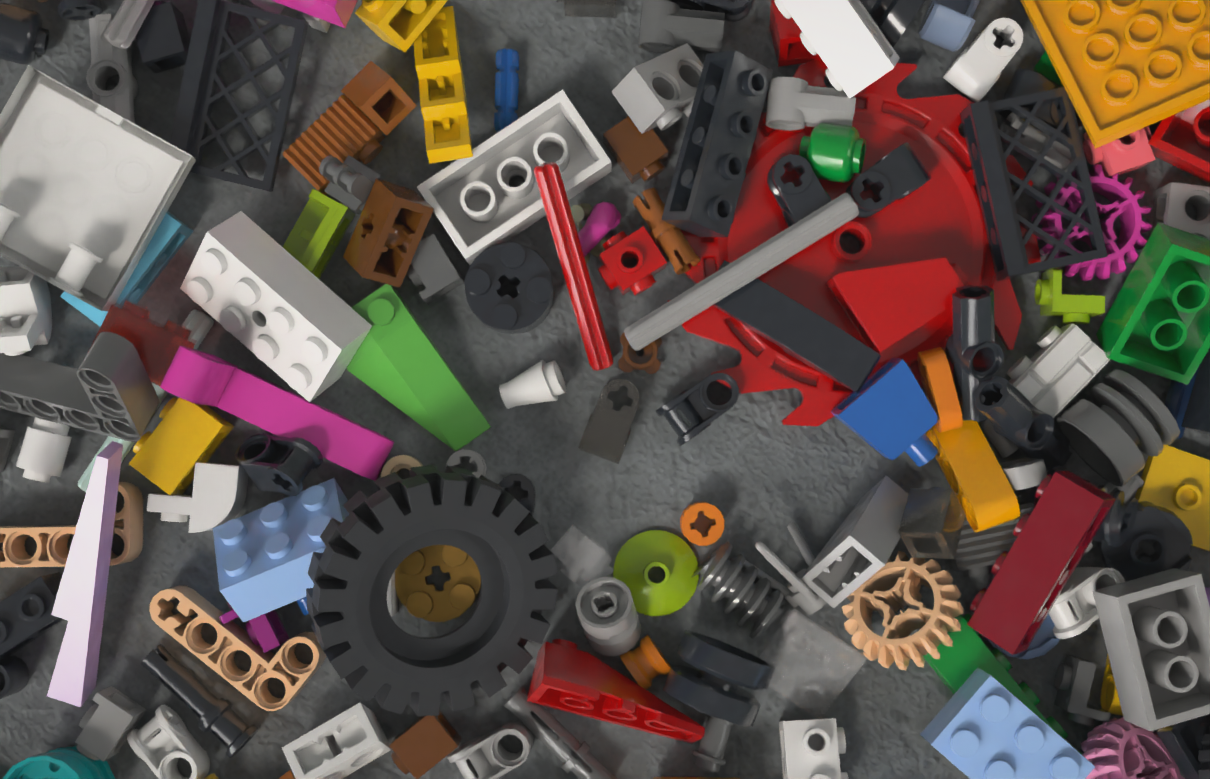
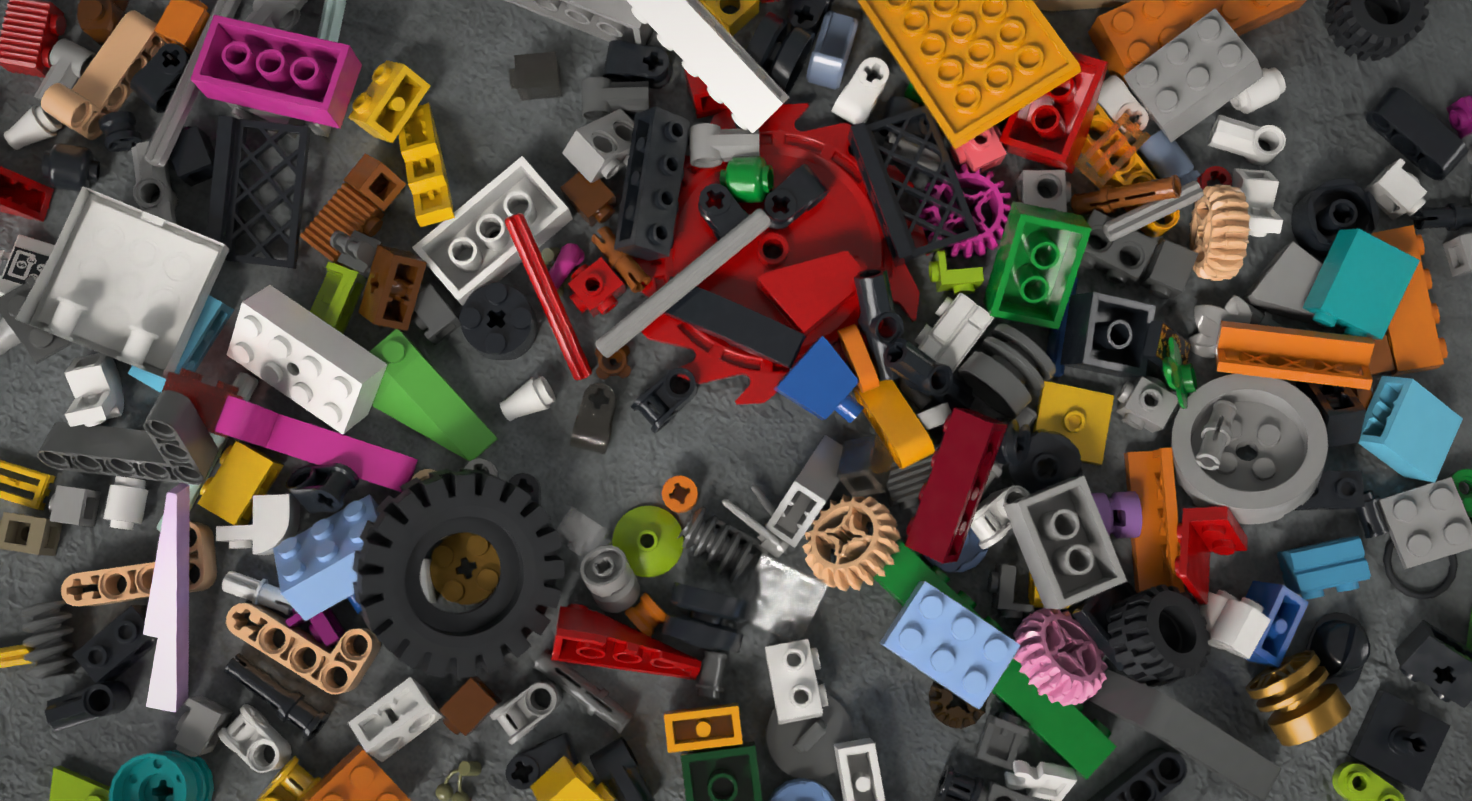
camera: 15 degrees left, 5 degrees down
(186, 573) = (256, 591): none -> white axle
(506, 88) = (479, 160): blue axle -> none

